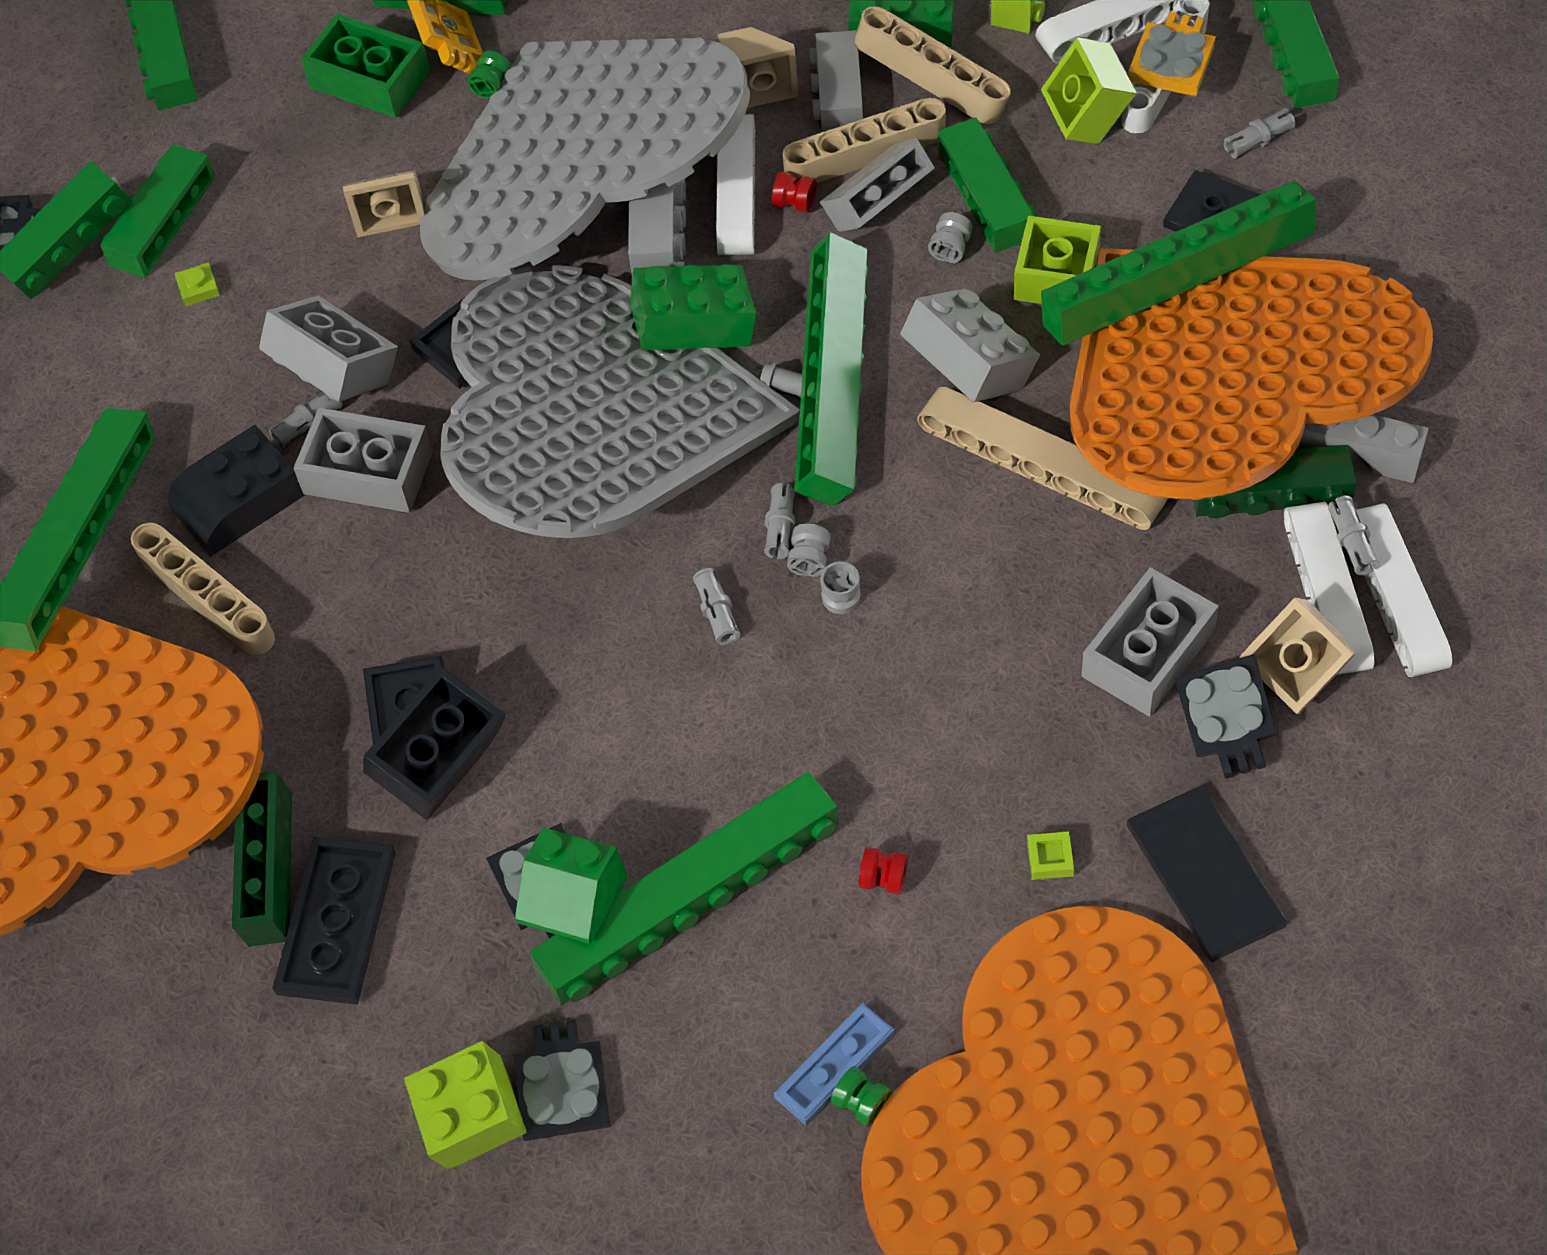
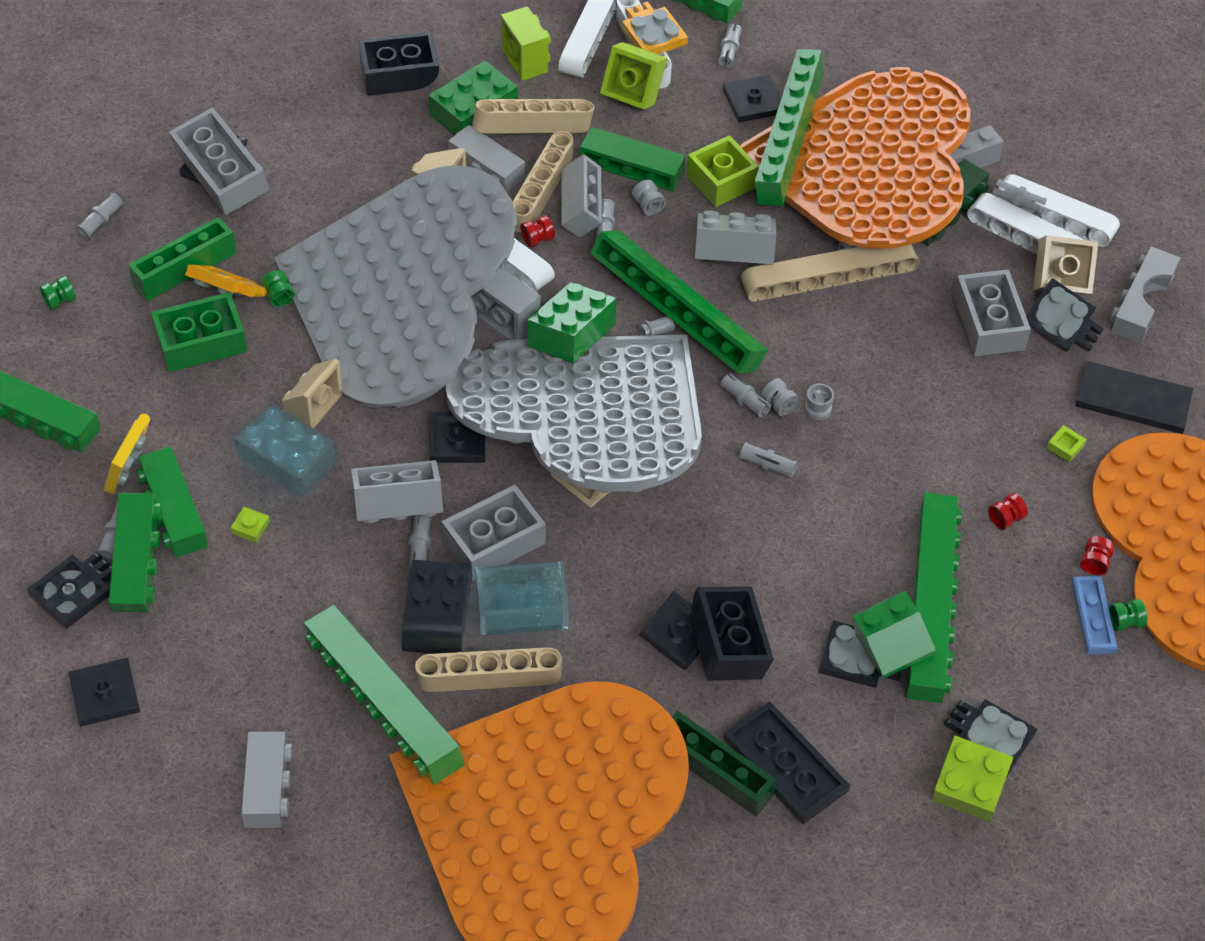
camera: 55 degrees left, 5 degrees down
(152, 136) = (127, 455): none -> yellow piece
(300, 237) = (286, 450): none -> clear light blue brick
(307, 544) = (522, 598): none -> clear light blue brick
(877, 230) = (608, 220): none -> light grey pin
(914, 1004) = (1097, 555): none -> red wheel
(1420, 751) = (1135, 314): none -> light grey arch

